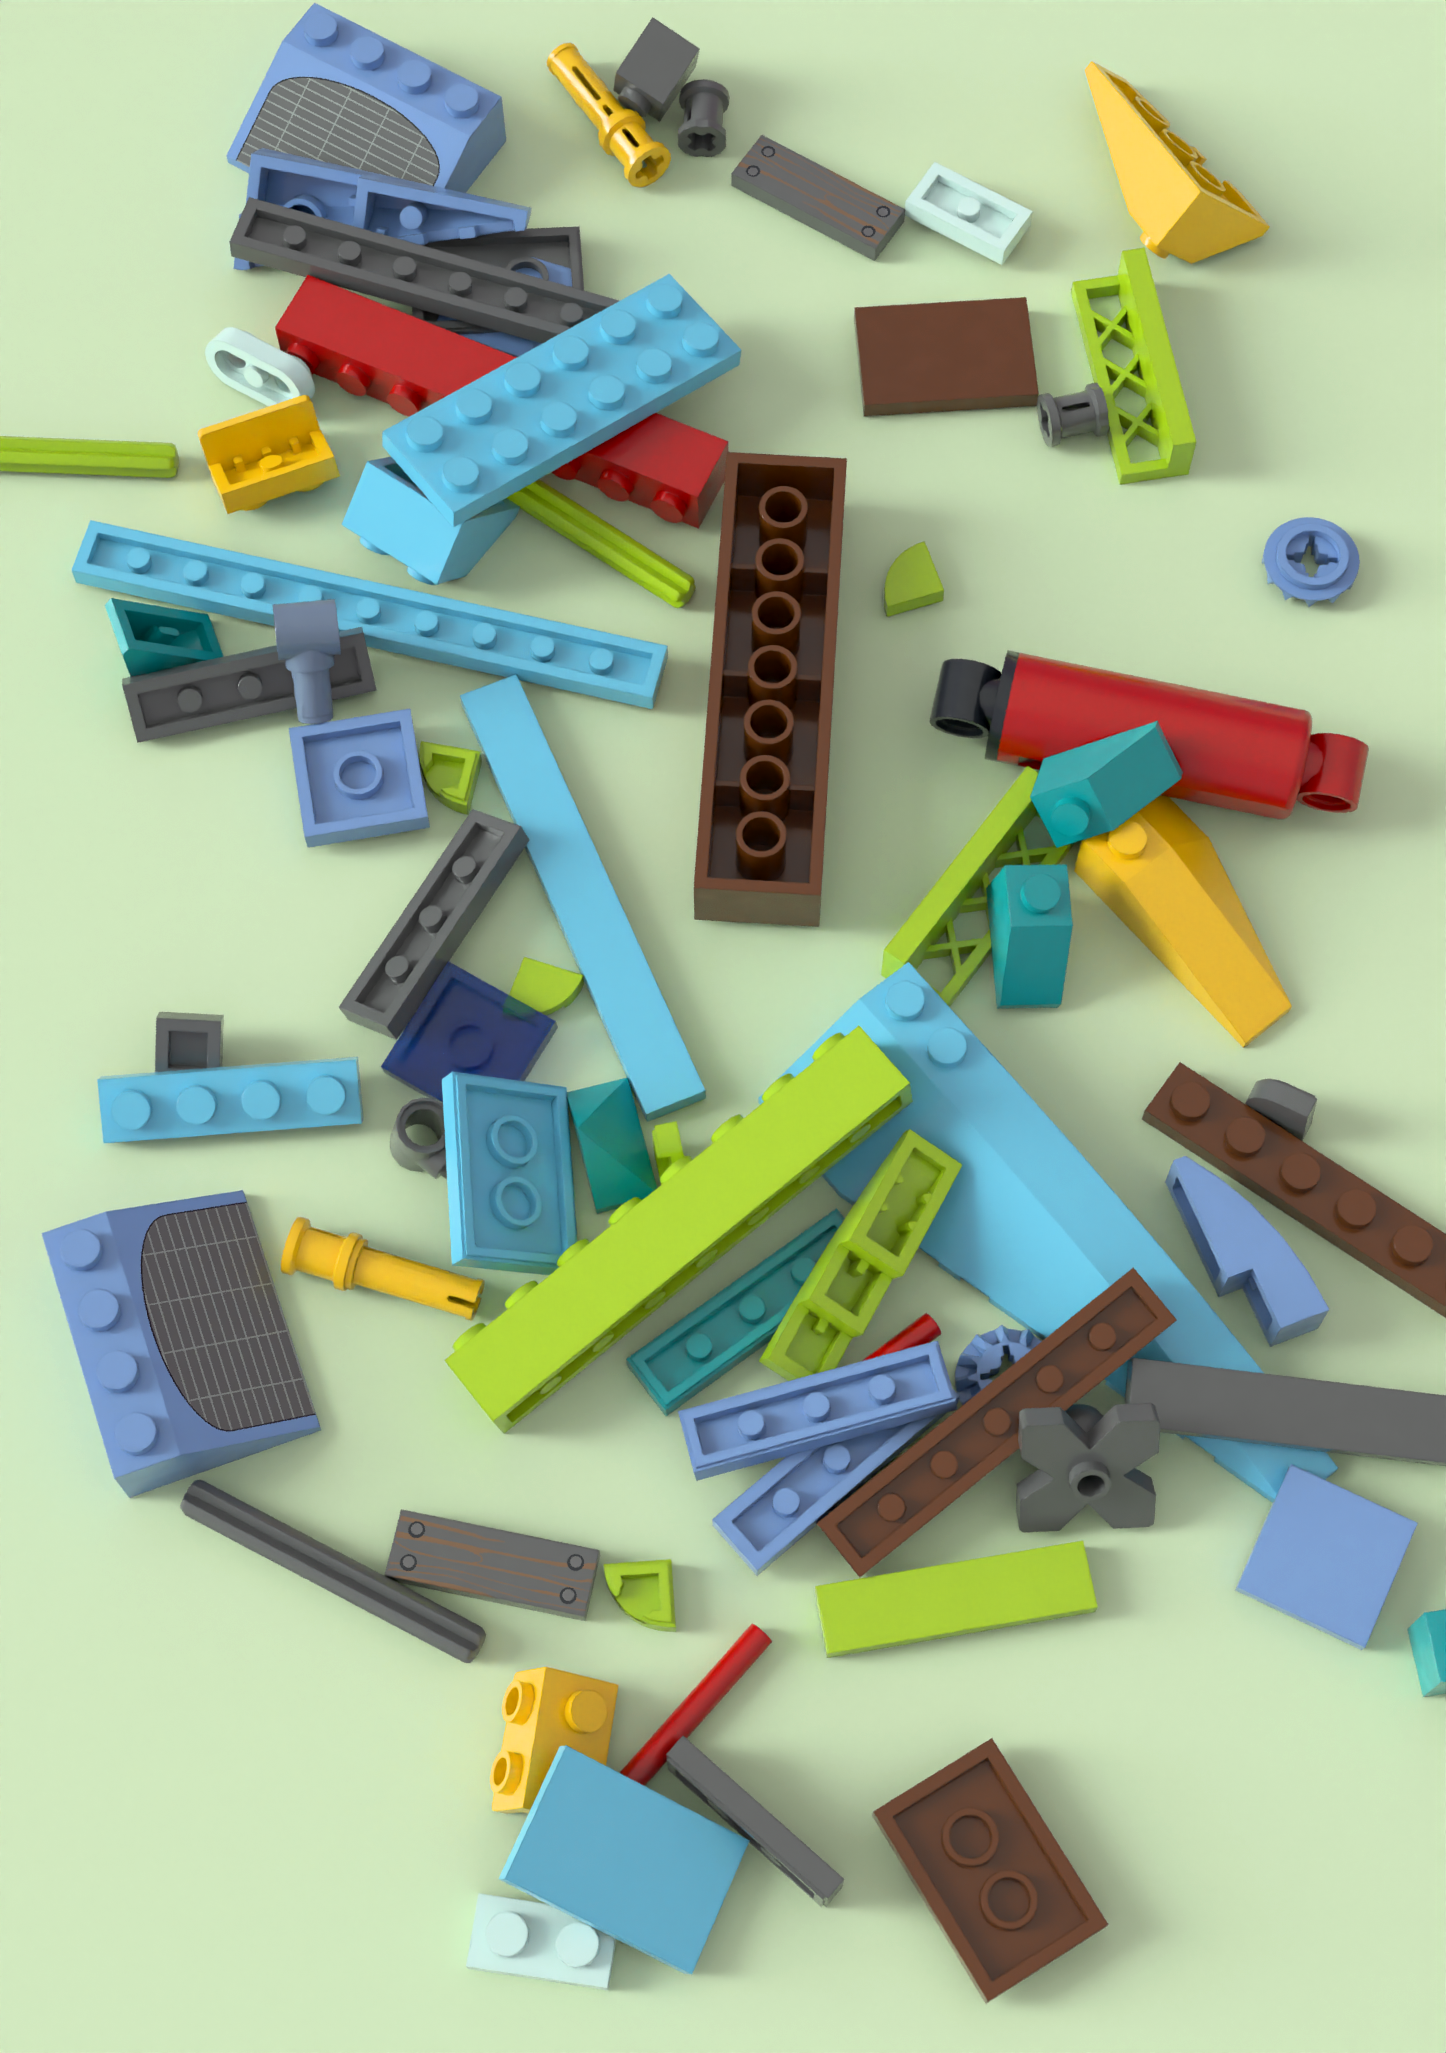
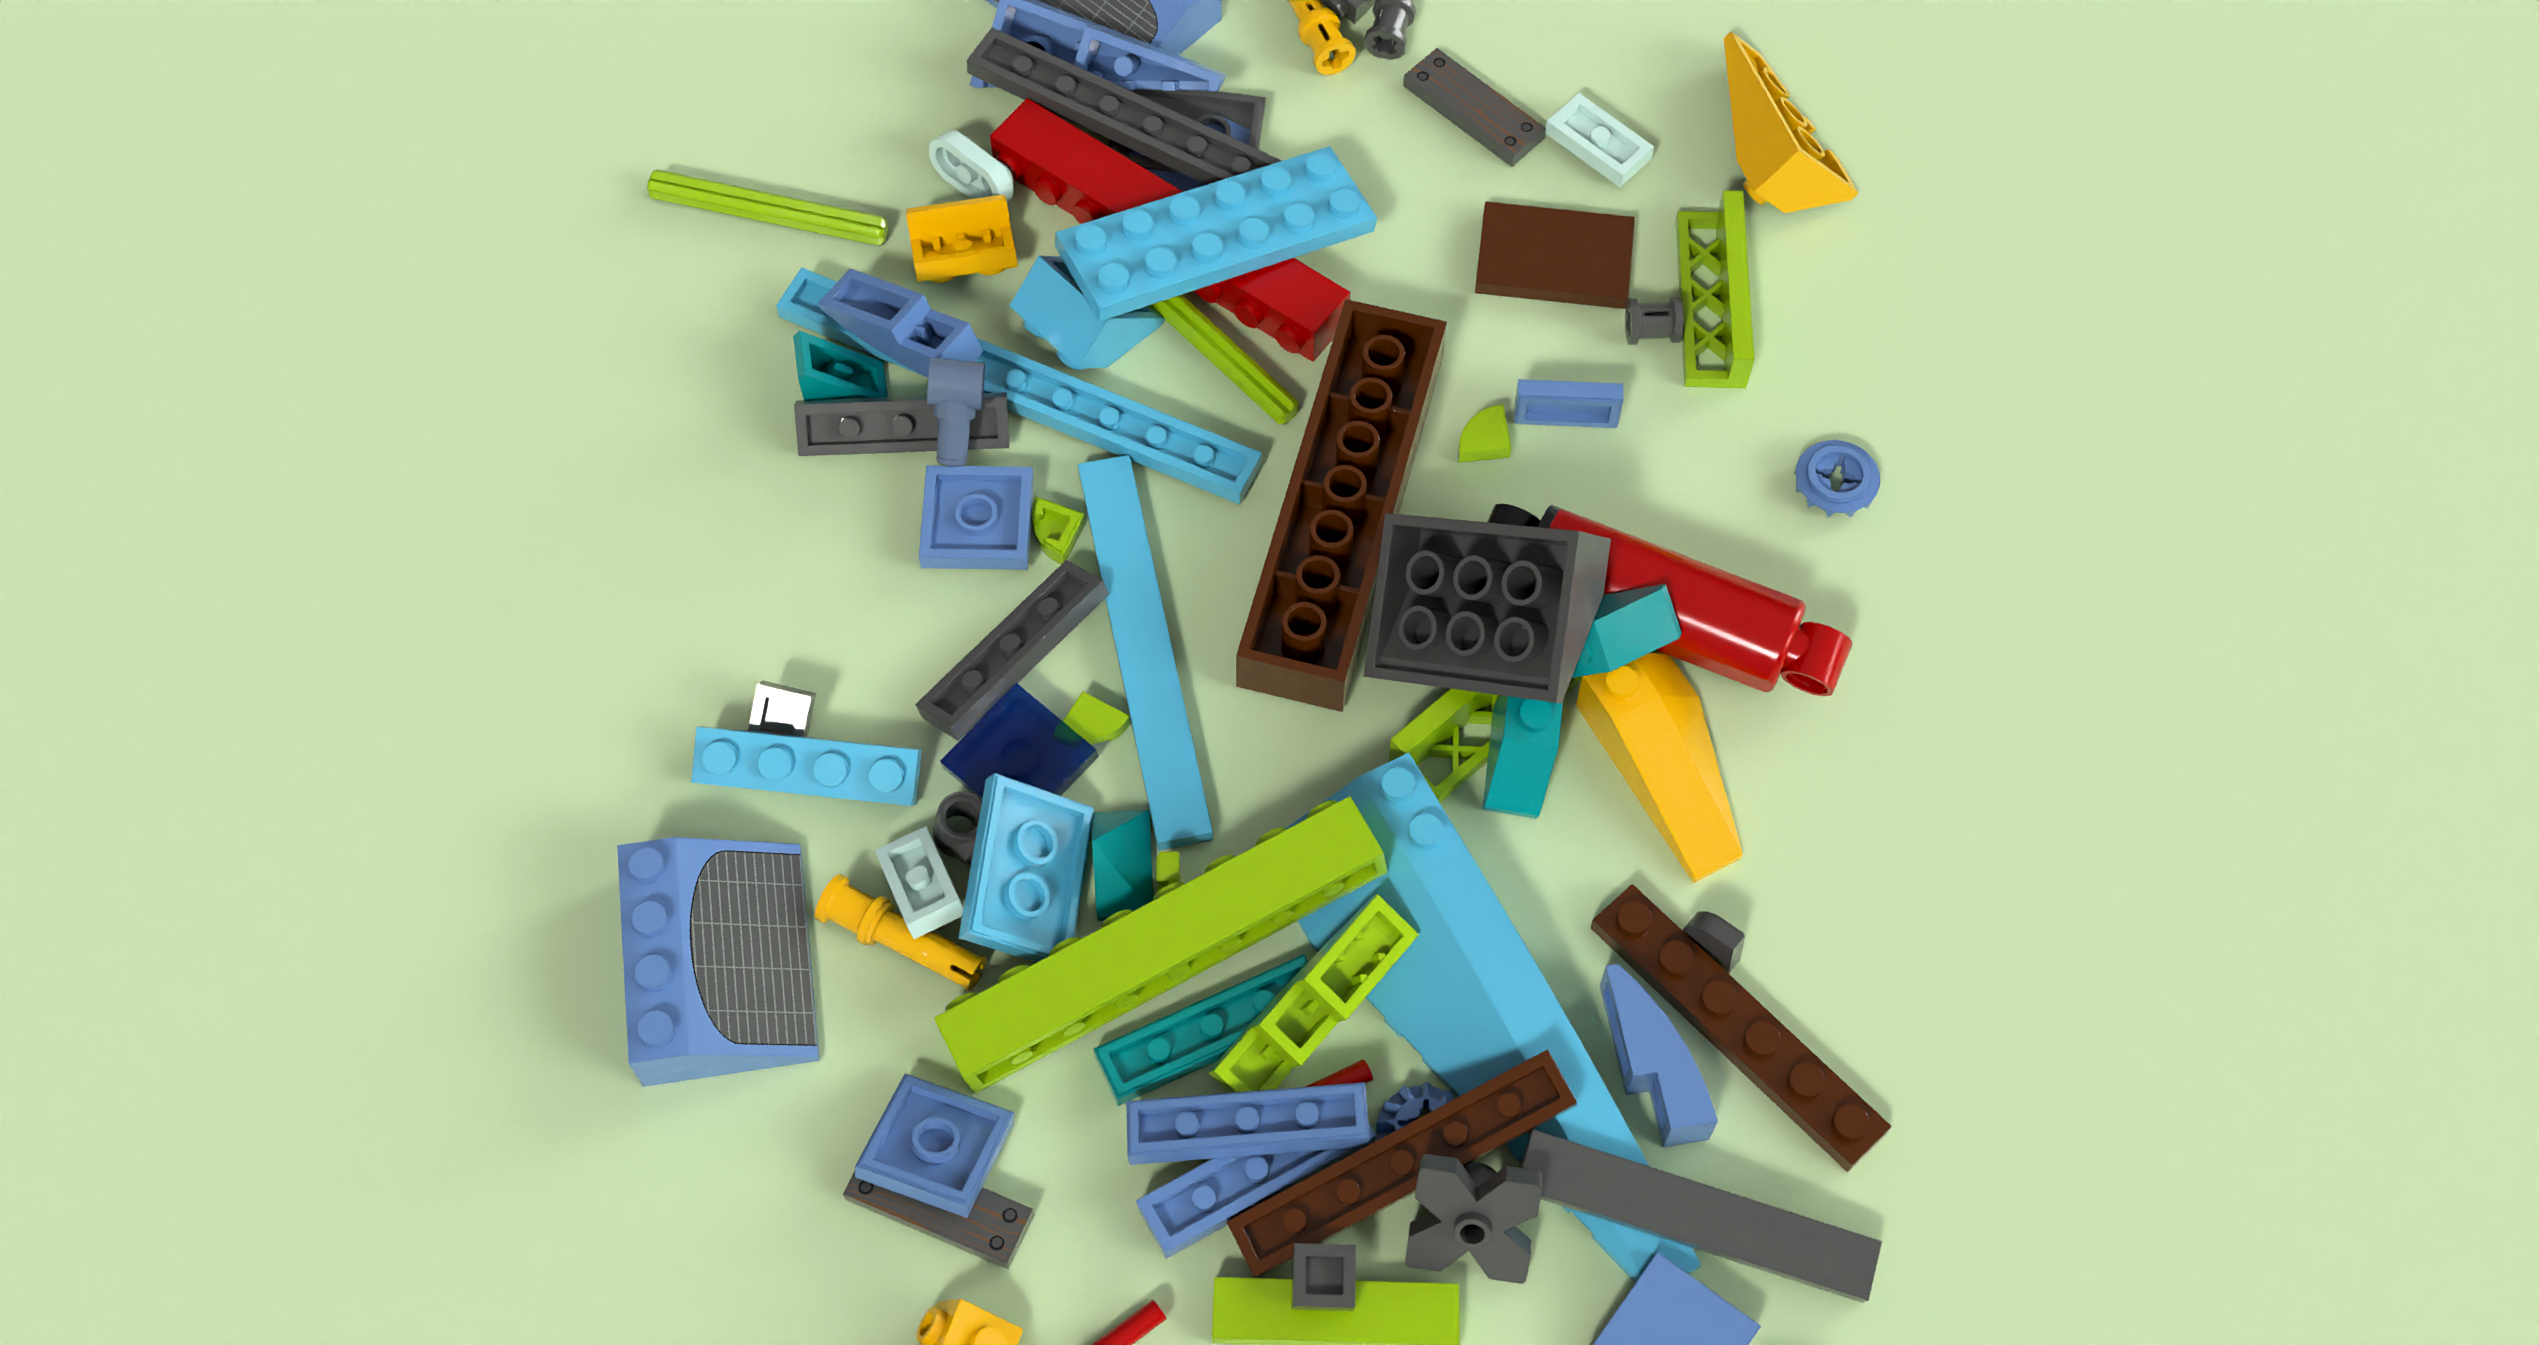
camera: 10 degrees right, 5 degrees down
(221, 567) = (898, 322): none -> medium blue slope
(333, 1571) = (801, 1183): dark grey axle -> none
(392, 1209) = (920, 882): none -> light aqua plate
(475, 1501) = (935, 1145): none -> medium blue tile
(644, 1592) = (1065, 1253): lime tile -> none
(937, 1563) = (1323, 1277): none -> dark grey plate
(959, 782) = (1483, 605): none -> dark grey slope
(997, 528) = (1568, 403): none -> medium blue tile

